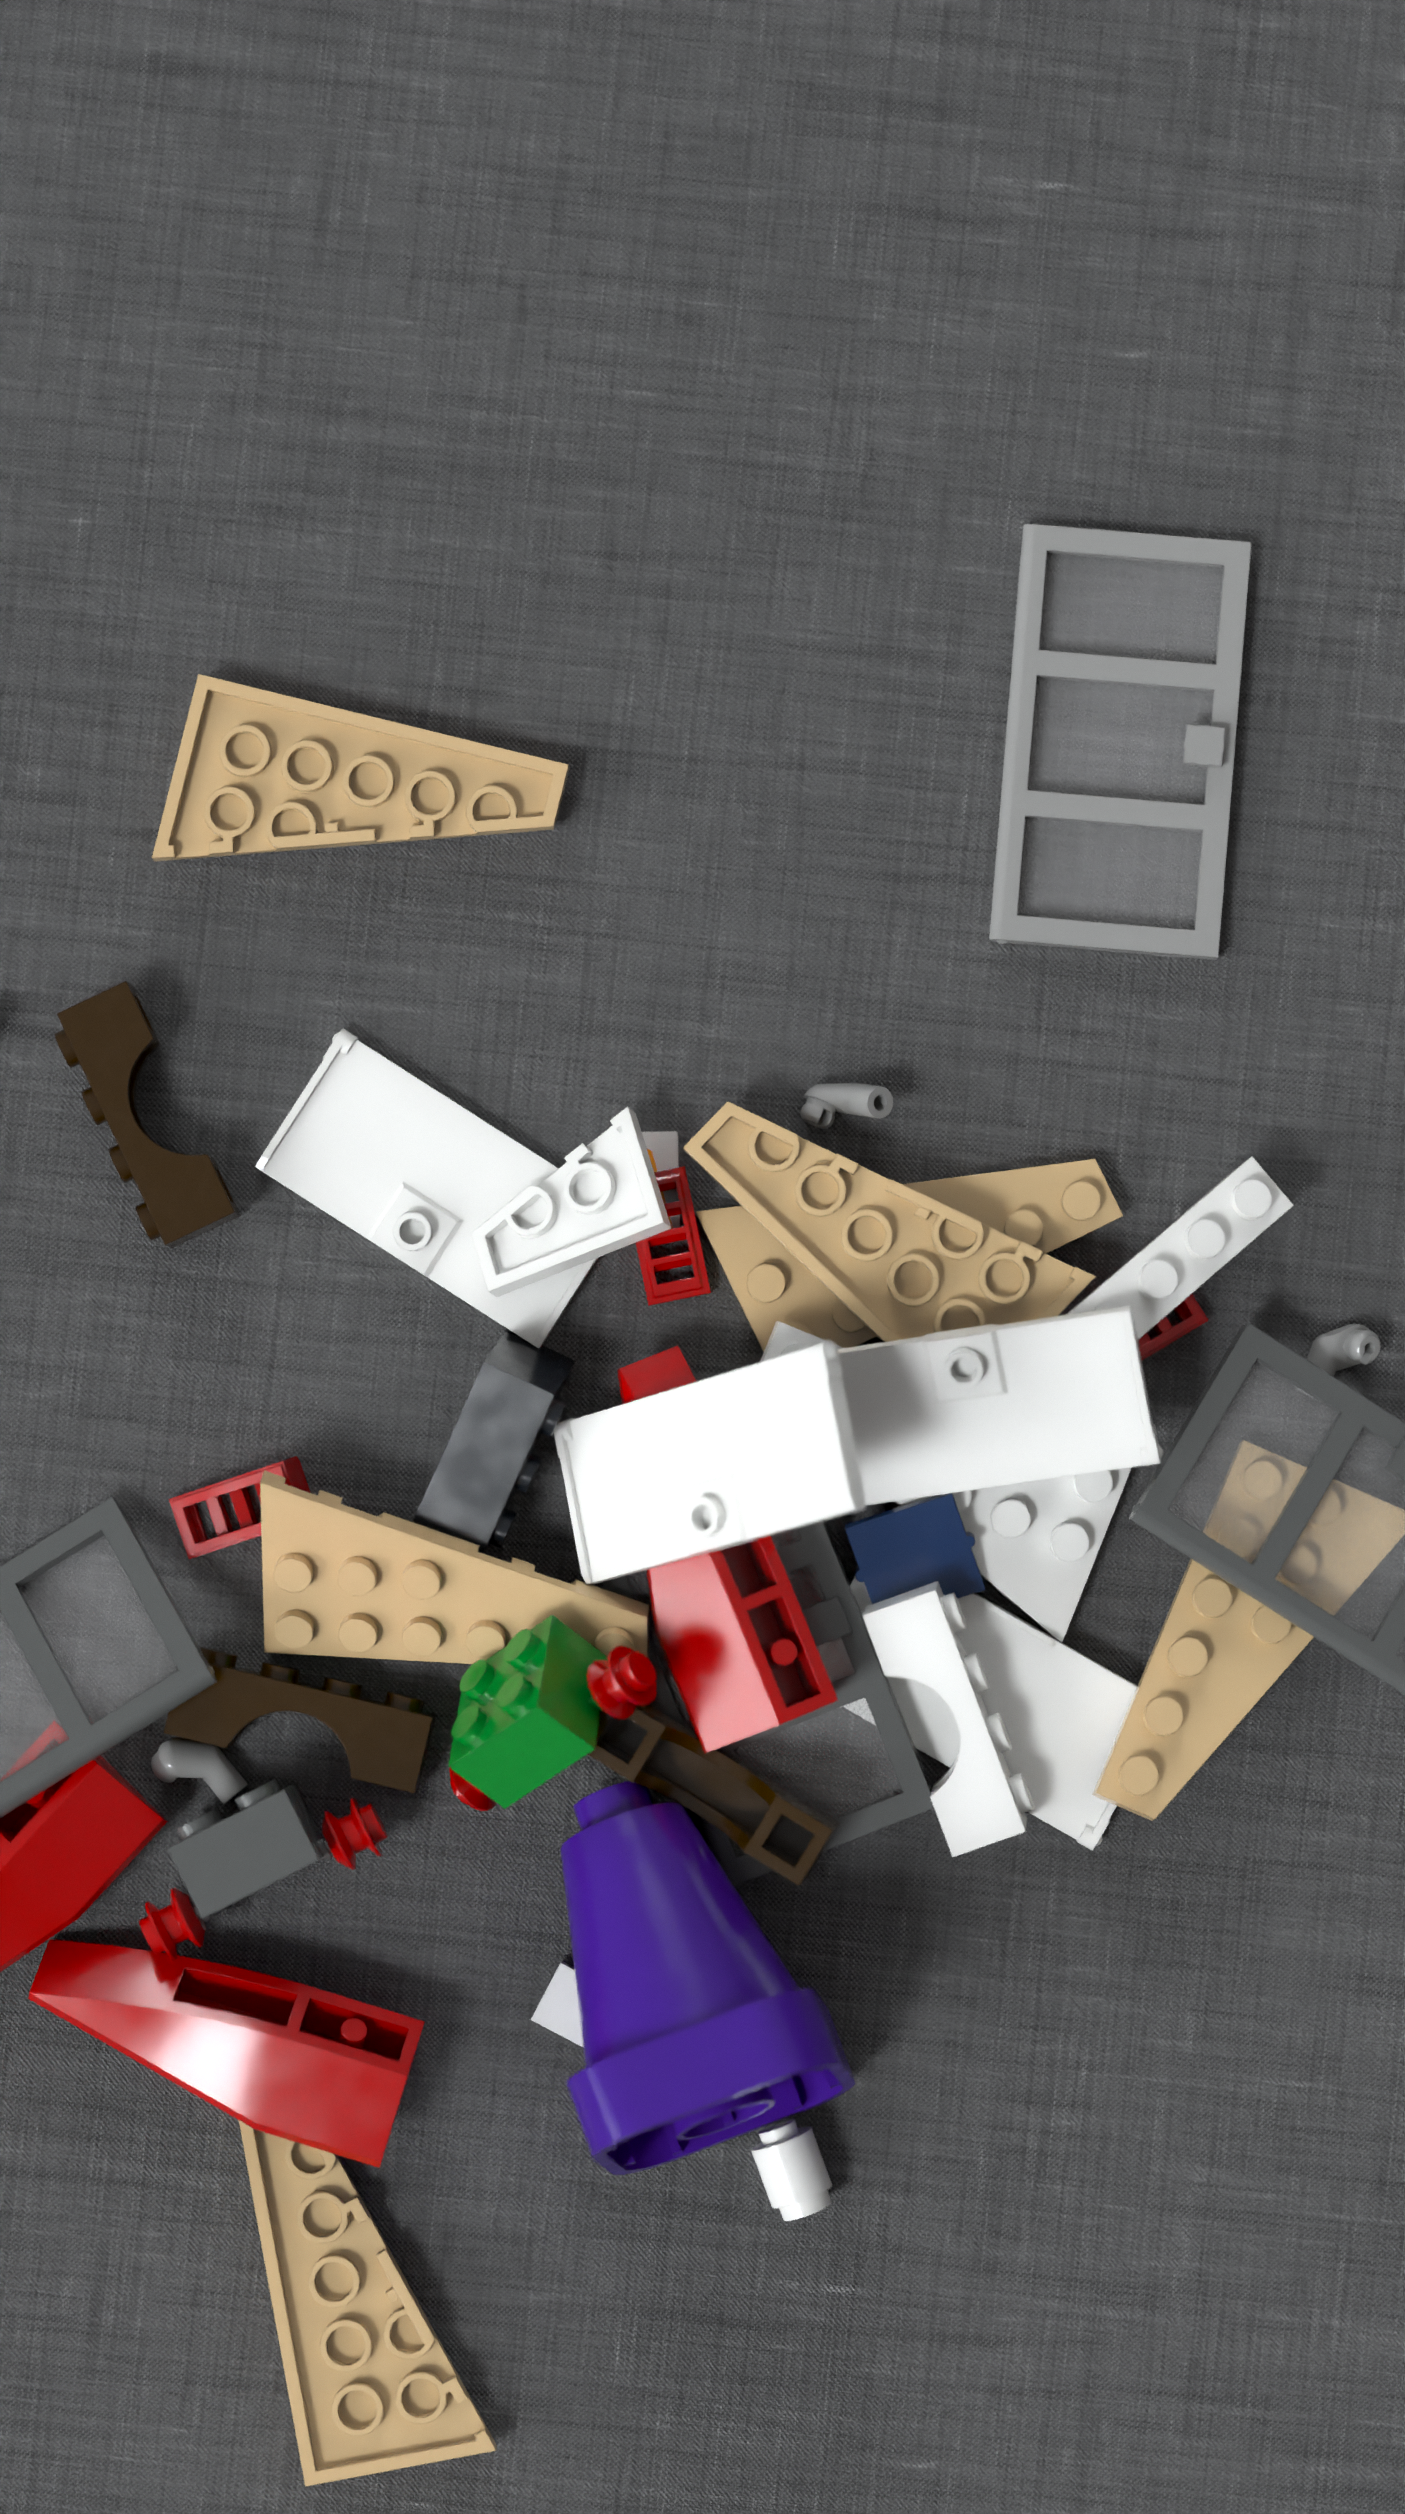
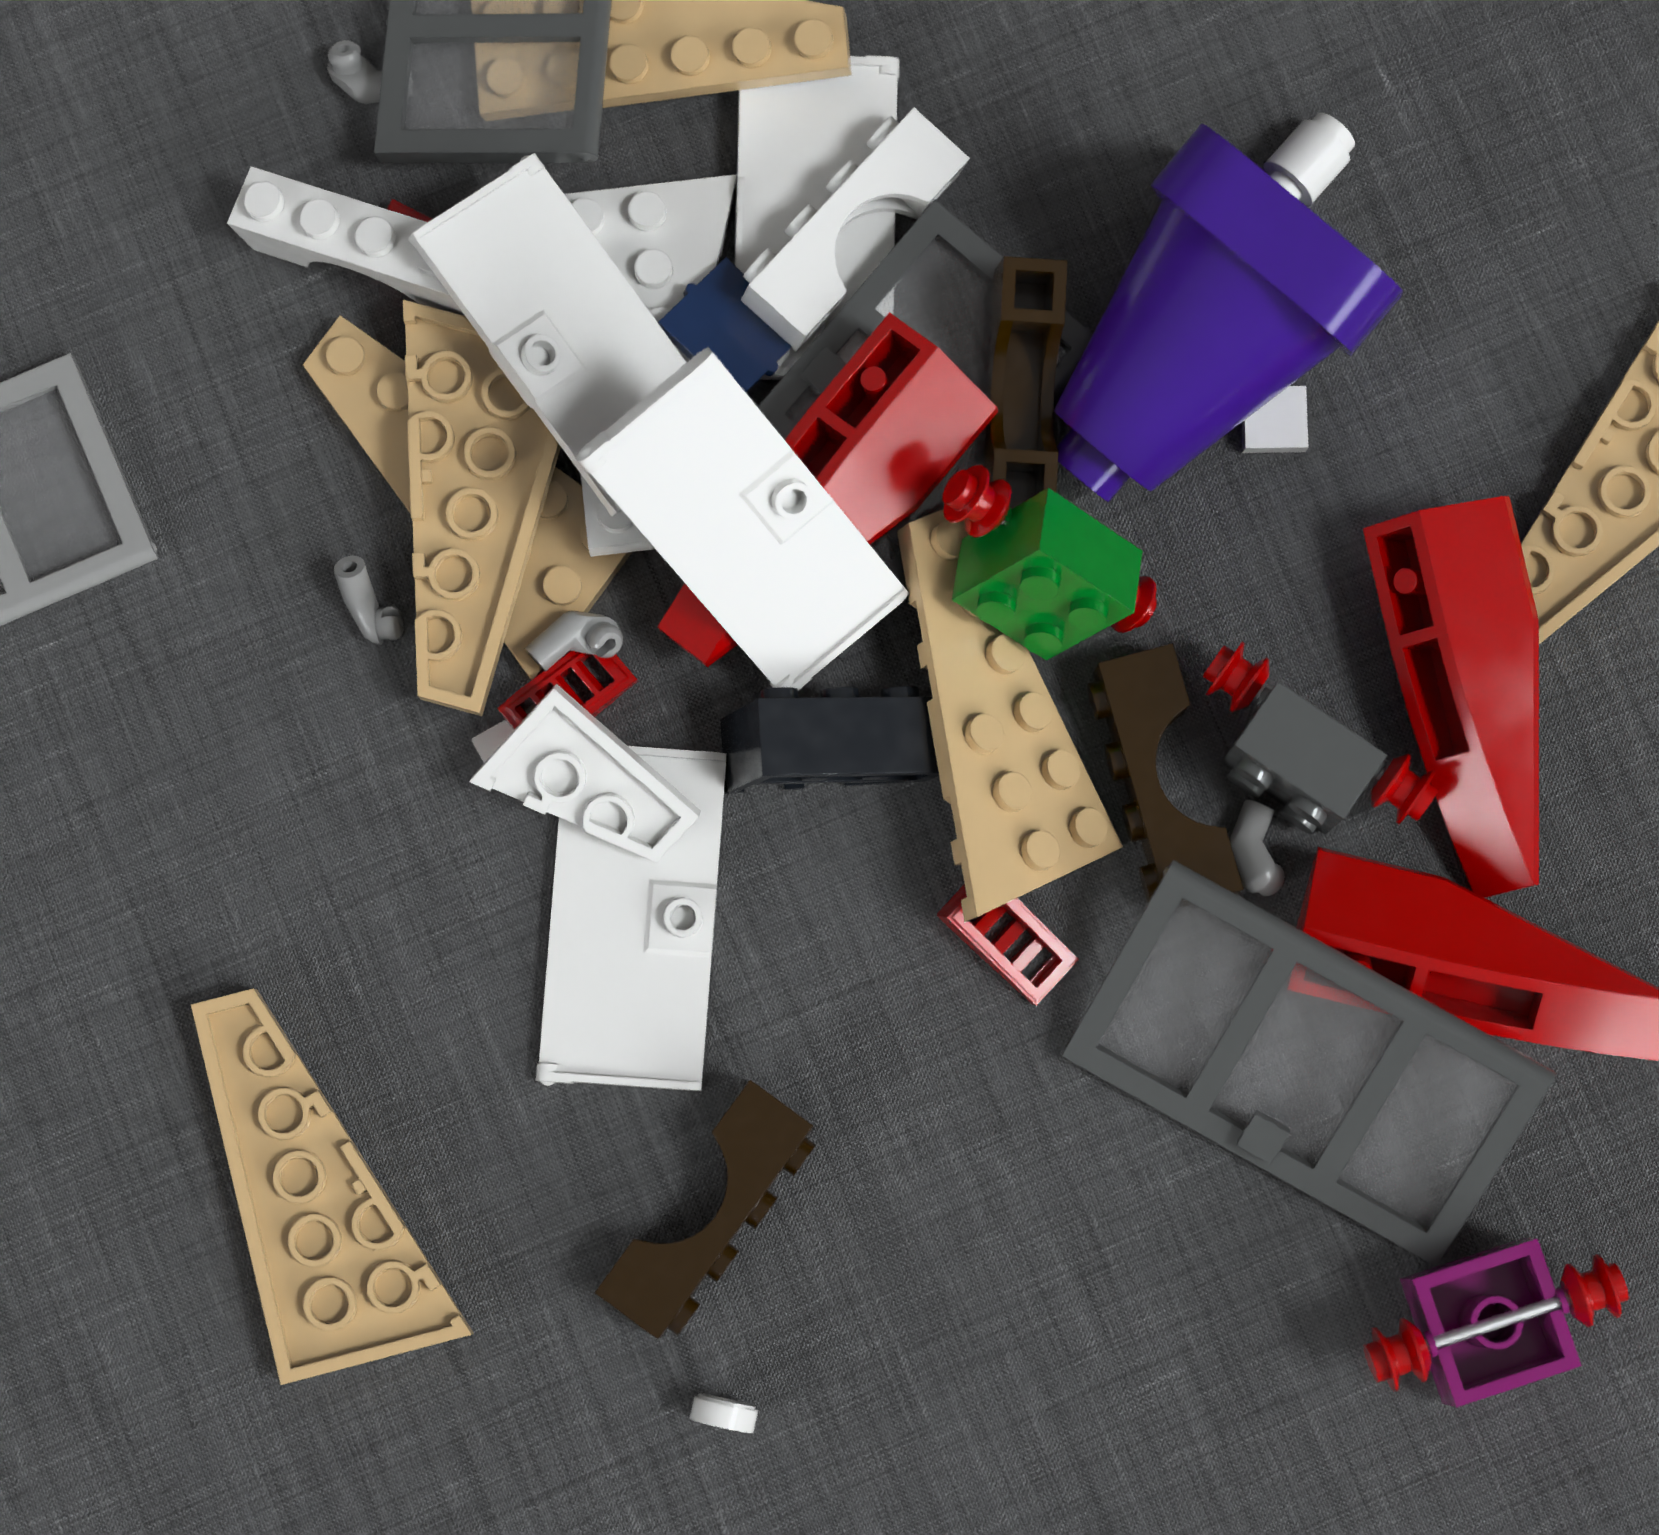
camera: 125 degrees left, 5 degrees down
(713, 1274) = (578, 633): none -> light grey arm

